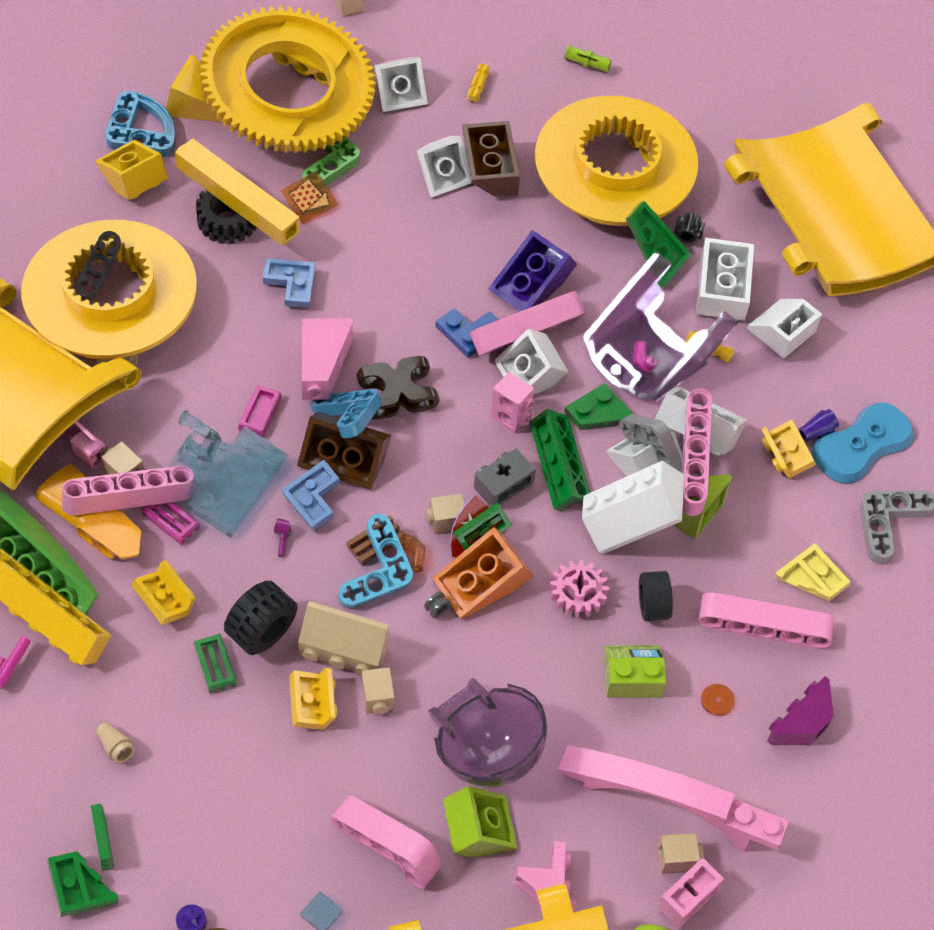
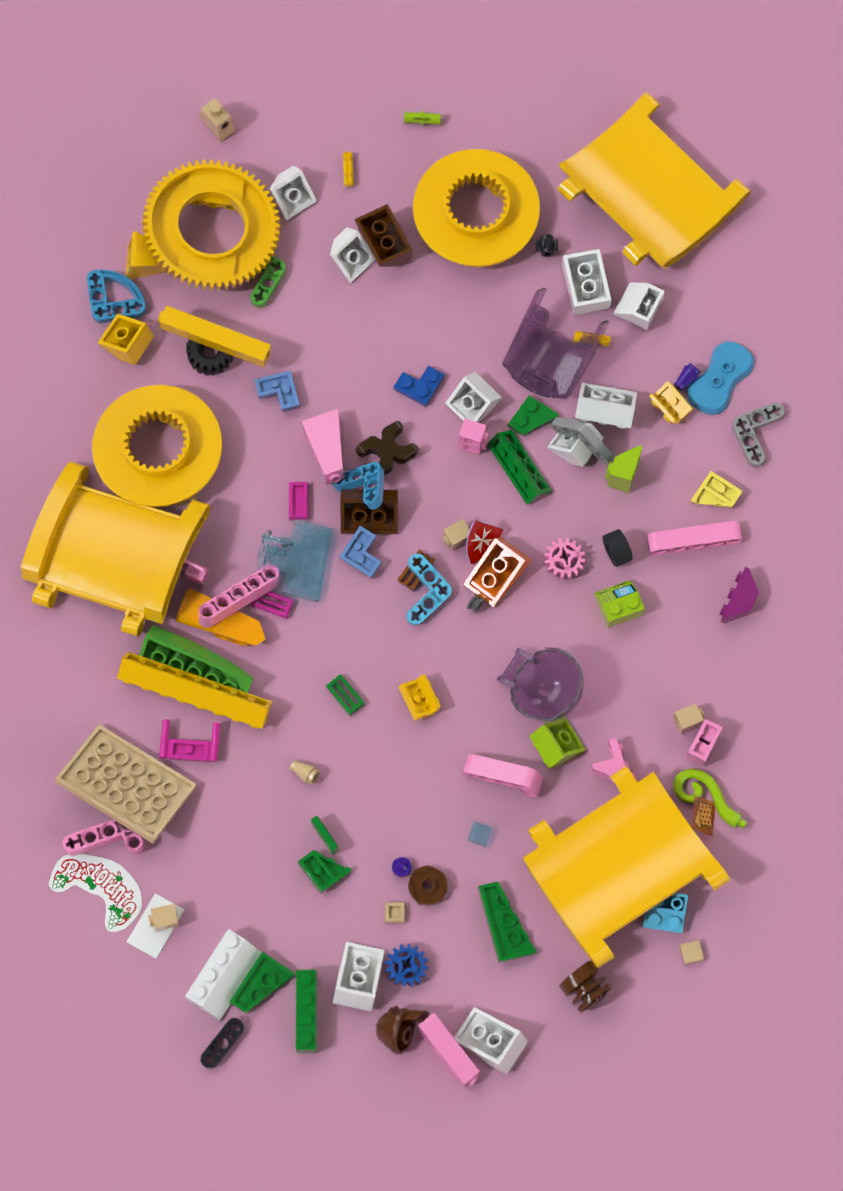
camera: 15 degrees left, 15 degrees up
(112, 252) = (139, 449): black beam -> none
(121, 460) = (223, 575): tan brick -> none
(165, 594) = (293, 659): yellow bracket -> none
(260, 617) = (366, 656): black tyre -> none
(284, 529) = (350, 583): magenta hand -> none
(309, 197) = (263, 315): clear orange sticker -> none
(343, 639) = (425, 652): tan slope -> none
(378, 690) = (459, 677): tan brick -> none
(415, 550) = (445, 568): clear orange arm -> none
(481, 524) = (484, 538): green tile -> none
(504, 477) = (484, 504): dark grey brick -> none
(532, 273) = (448, 325): dark purple slope -> none
(538, 318) = (459, 367): bright pink beam -> none
(634, 506) = (584, 492): white slope -> none
(640, 359) = (548, 368): dark pink arm -> none
(654, 237) = (528, 268): green wing -> none
(700, 441) = (613, 430): bright pink beam -> none
(716, 806) = (701, 682): bright pink slope -> none
(717, 691) = (680, 610): clear orange wheel -> none

